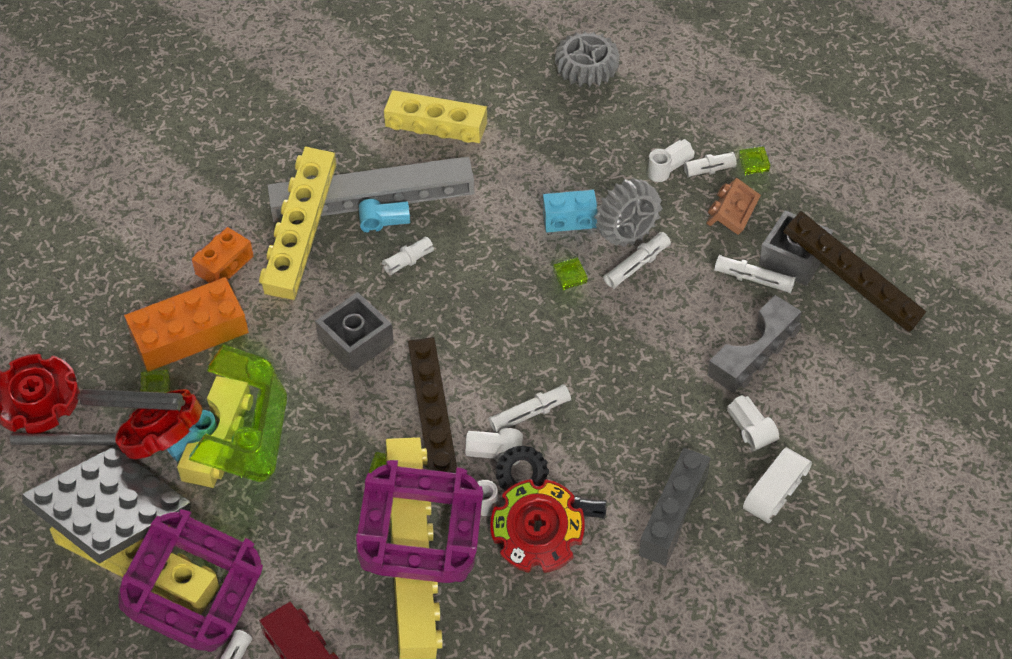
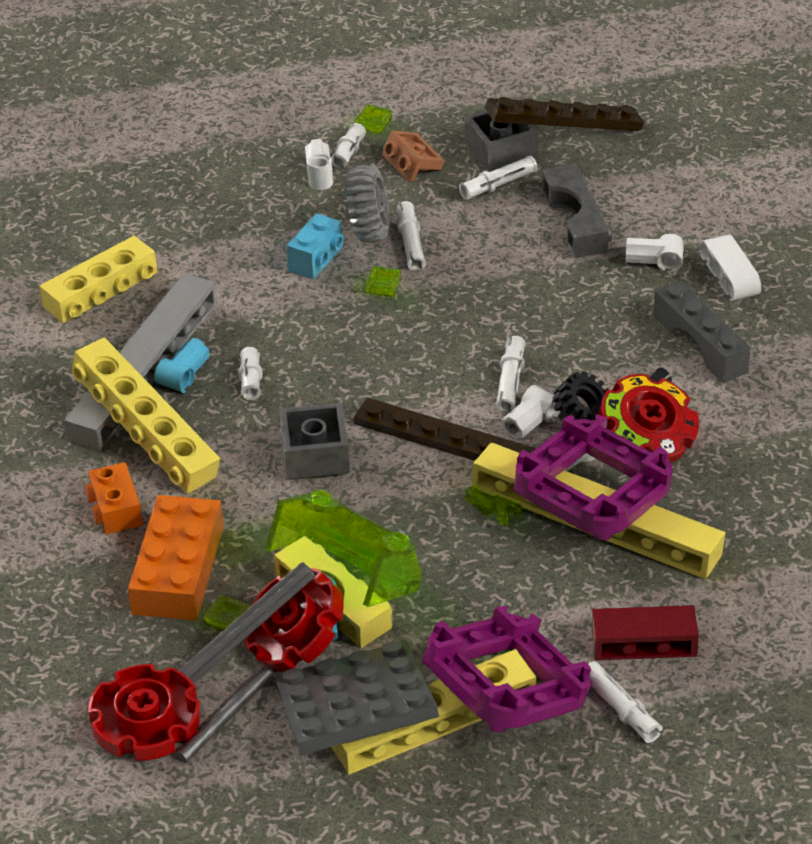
camera: 55 degrees left, 10 degrees down
(587, 58) = (140, 155): light grey gear -> none

